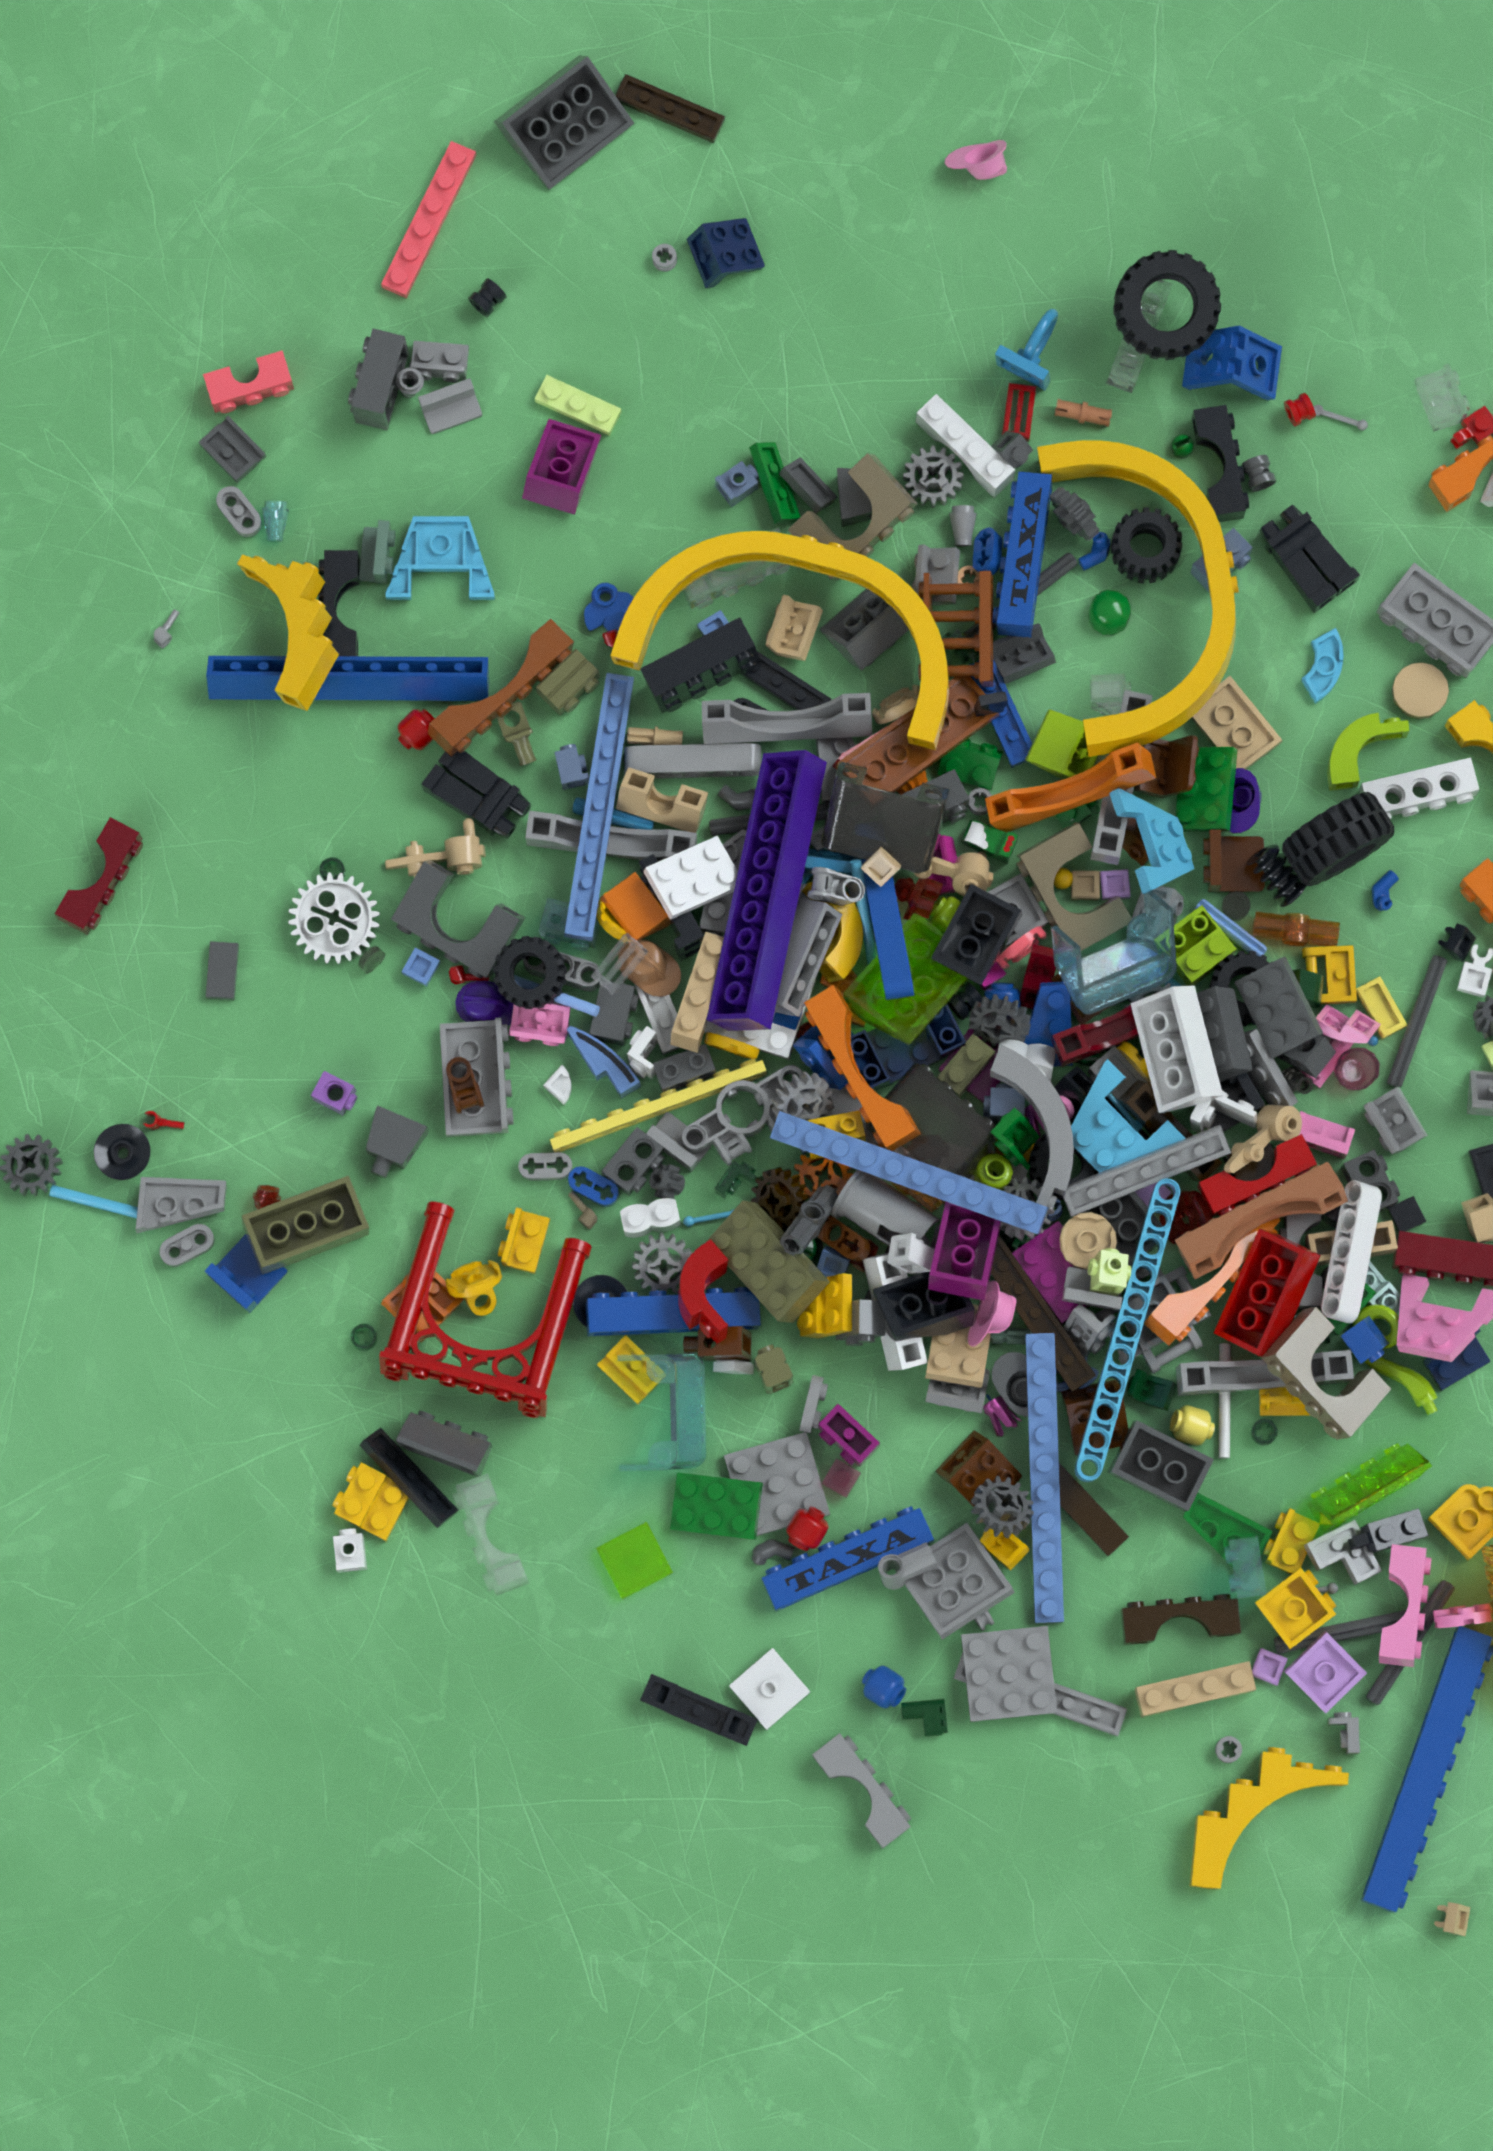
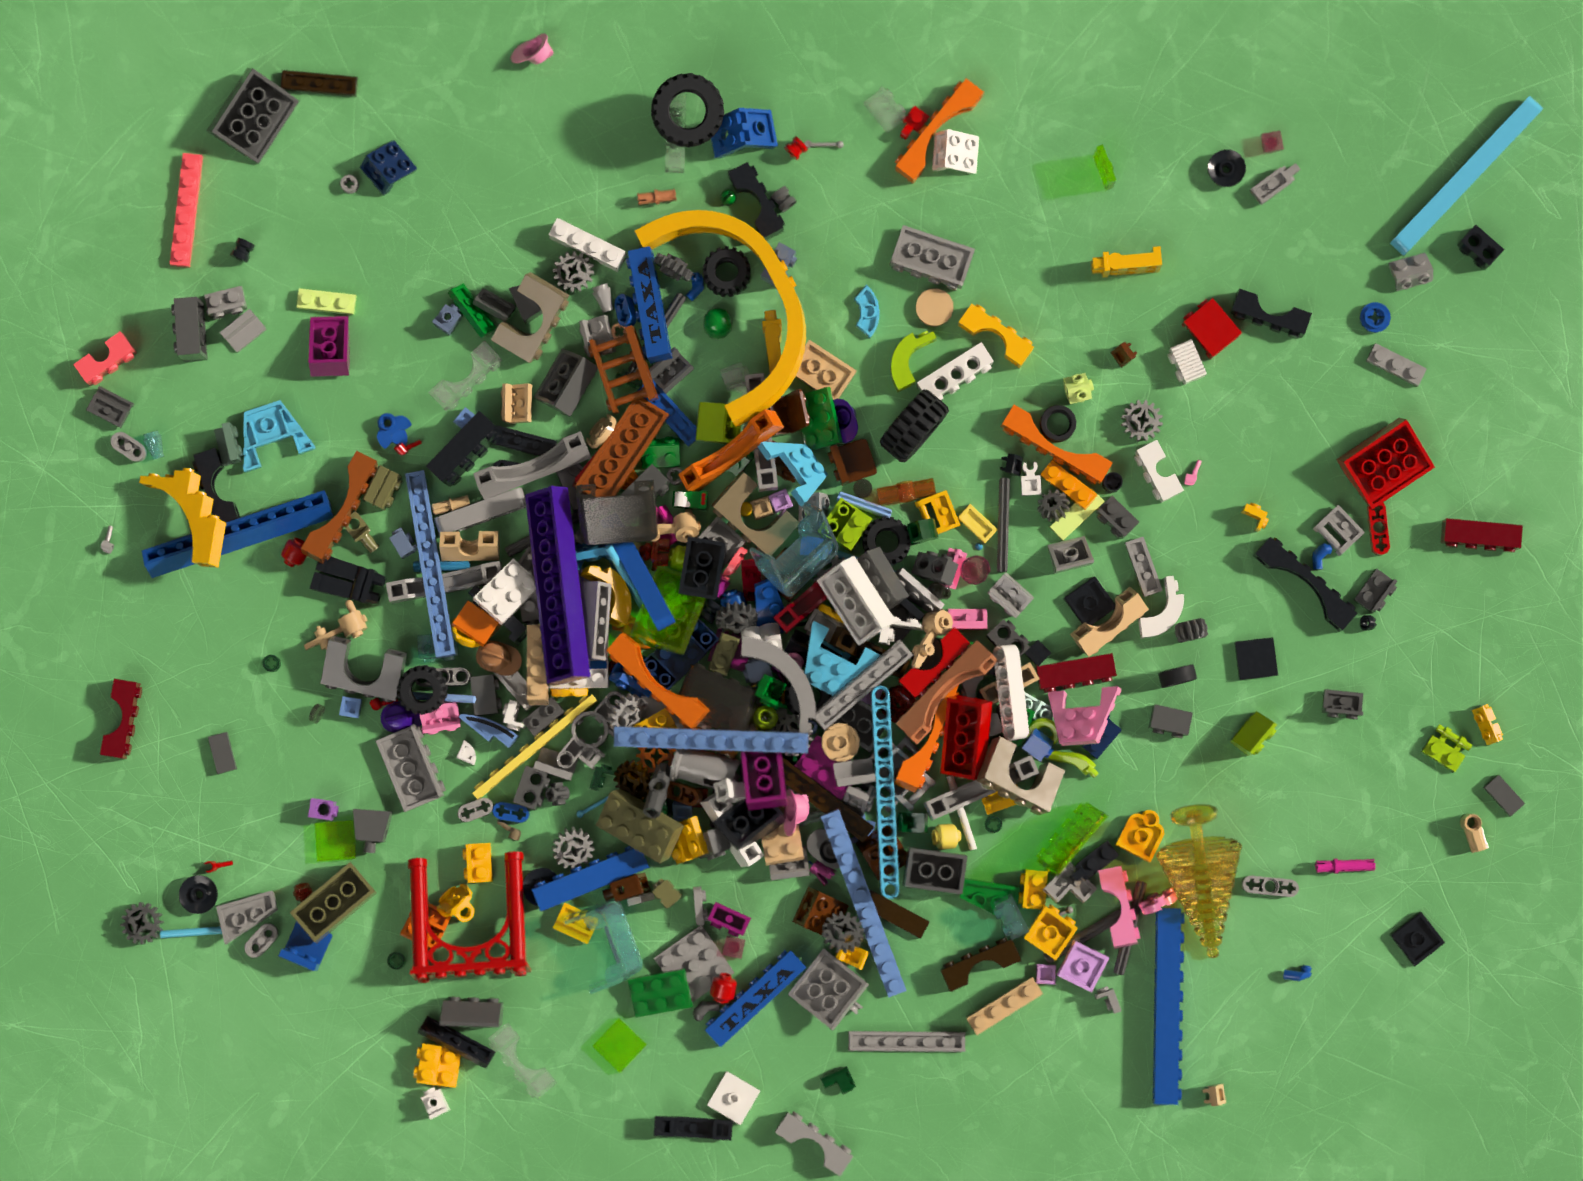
camera: 20 degrees left, 5 degrees up
(336, 1143) = (335, 840): none -> clear neon green plate
(345, 894) = (284, 676): white gear -> none
(412, 377) = (207, 321): light grey cone -> none
(464, 1087) = (405, 778): reddish brown piece -> none
(605, 981) = (473, 678): clear tile -> none
(657, 1216) = (549, 824): white brick -> none
(699, 1271) = (597, 848): red arch -> none
(738, 801) = (520, 528): dark grey arm -> none
(811, 555) = (423, 403): yellow arch -> none
(830, 887) = (597, 568): light grey piece -> none
(880, 866) = (625, 545): tan tile -> none
(884, 1687) = (806, 1072): blue head -> none
(908, 1563) = (796, 988): light grey piece -> none
(990, 703) = (660, 412): black tile -> none
(1009, 1673) = (882, 1036): light grey plate -> none
(1016, 449) = (621, 238): dark grey brick -> none
(1021, 388) = (618, 225): red tile -> none
(1026, 361) = (608, 176): dark azure tile -> none
(1109, 1272) = (860, 759): yellowish green brick -> none
(1182, 647) = (772, 329): none -> yellow hips
(1237, 1751) = (1031, 1036): light grey bush -> none
(1276, 1778) = (1075, 1045): yellow arch -> none
(1278, 872) = (883, 459): black piece -> none
(1278, 1007) = (912, 549): dark grey plate -> none
(1308, 558) = (834, 245): black hips -> none
(1356, 1029) = (958, 547): bright pink slope -> none
(1380, 891) = (952, 448): blue arm -> none

